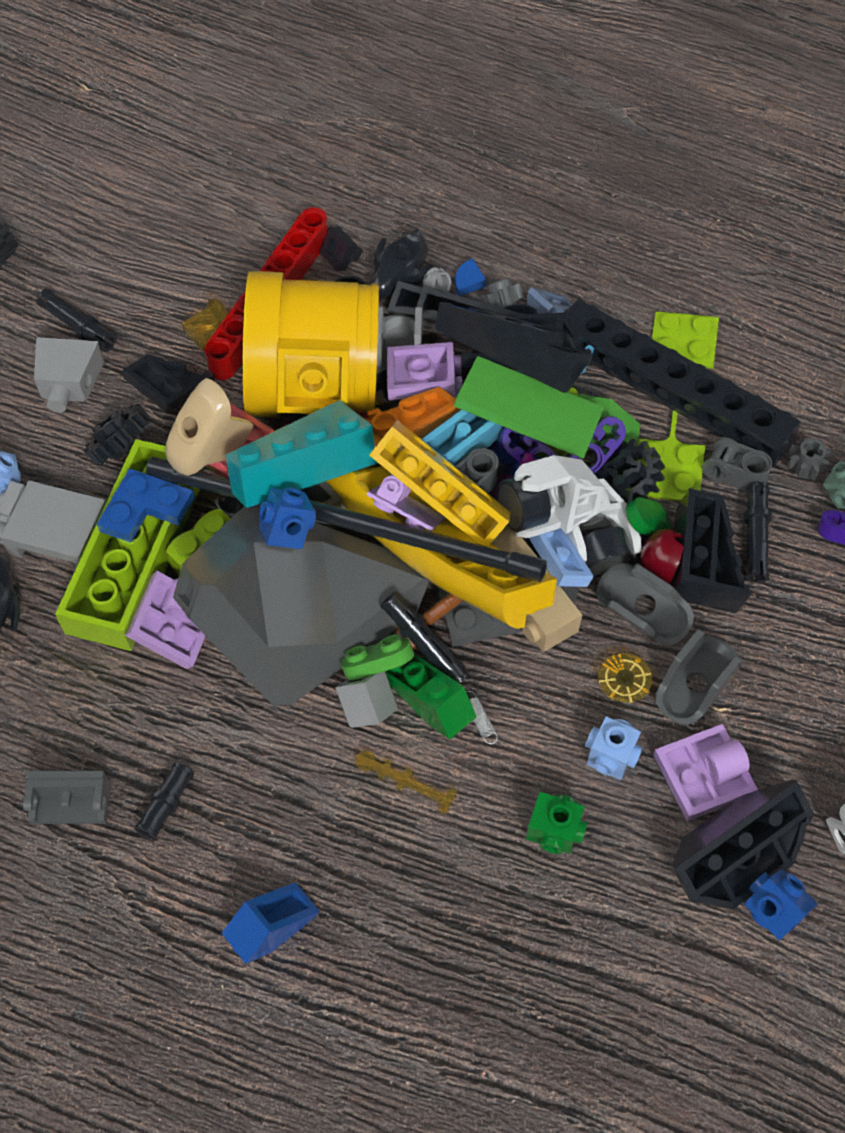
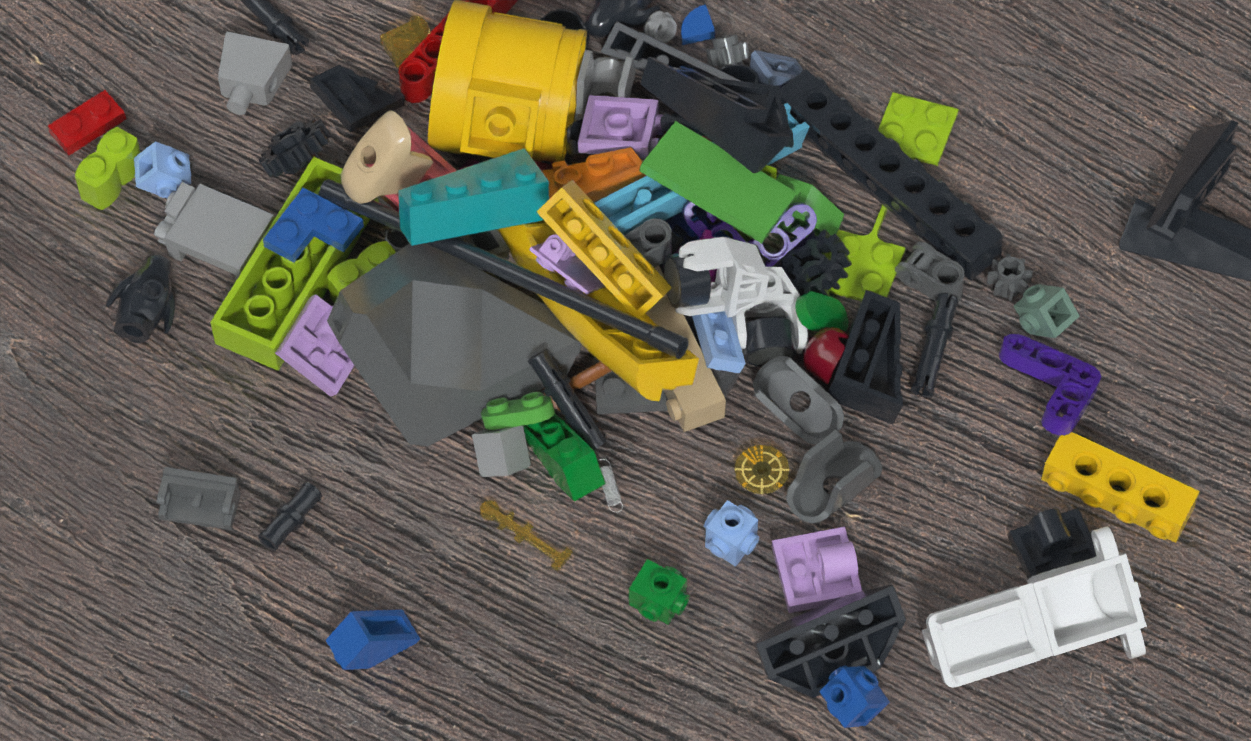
camera: 10 degrees right, 0 degrees up
(286, 518) = (448, 261): blue brick -> none

